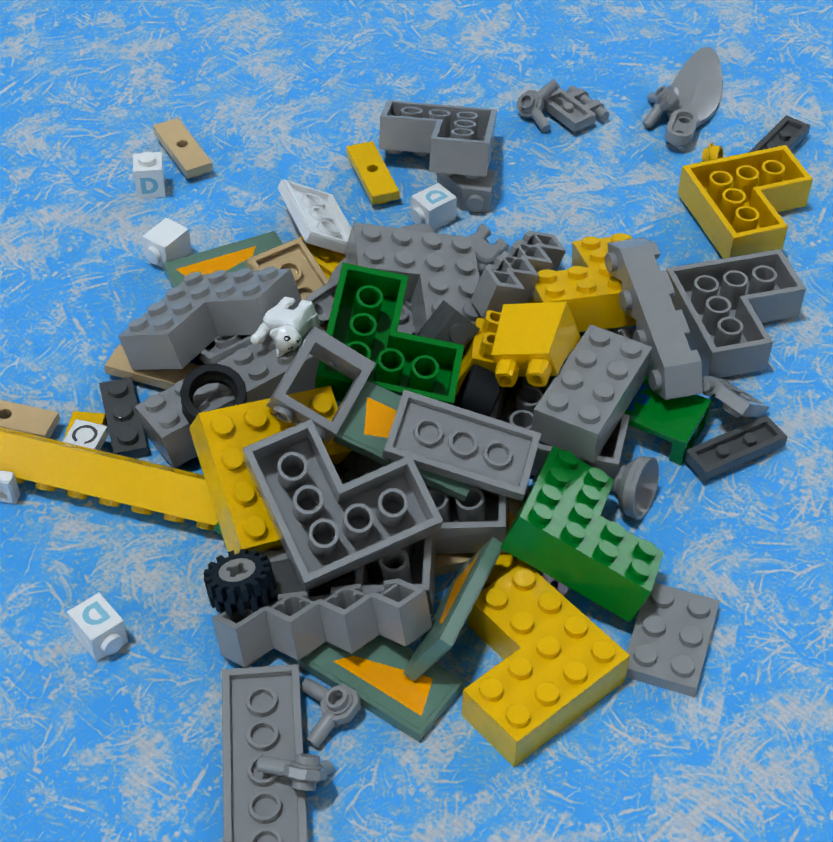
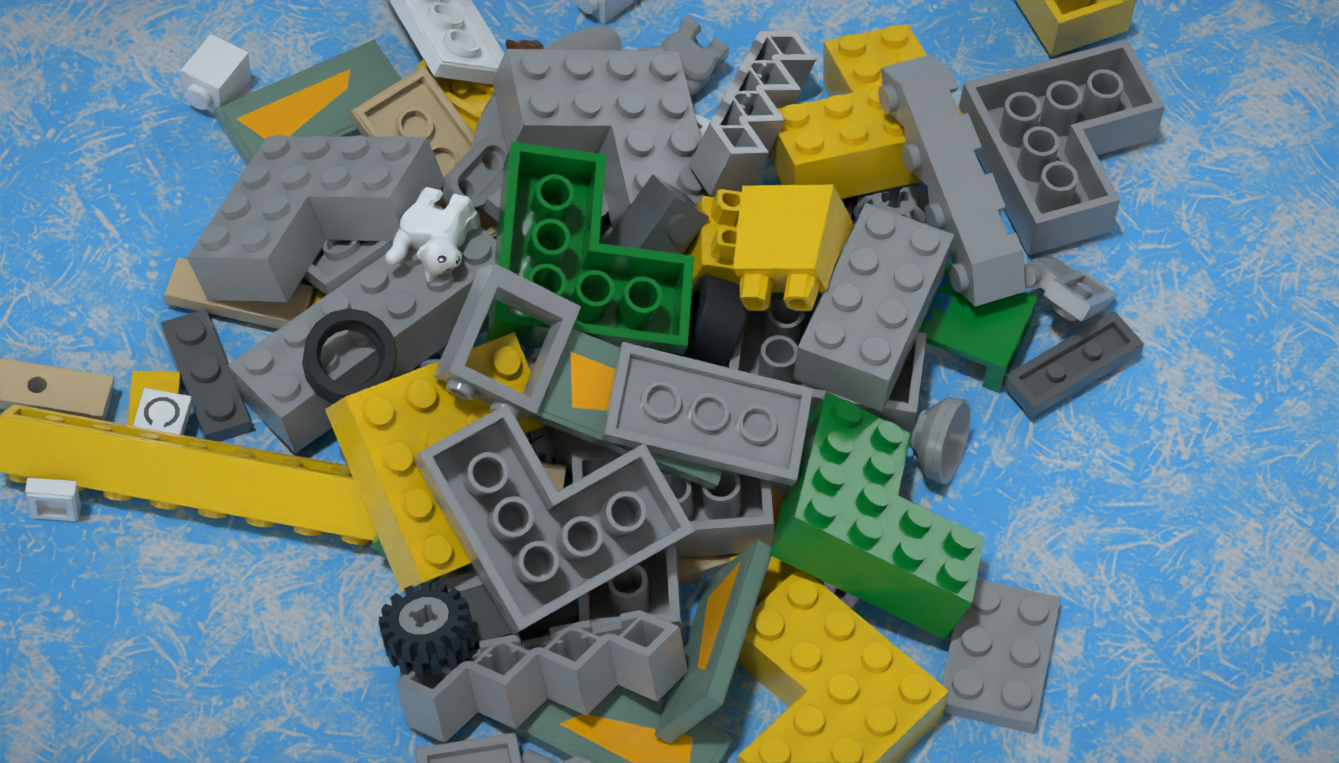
camera: 10 degrees left, 10 degrees up
(97, 627) = (237, 701): white brick -> none

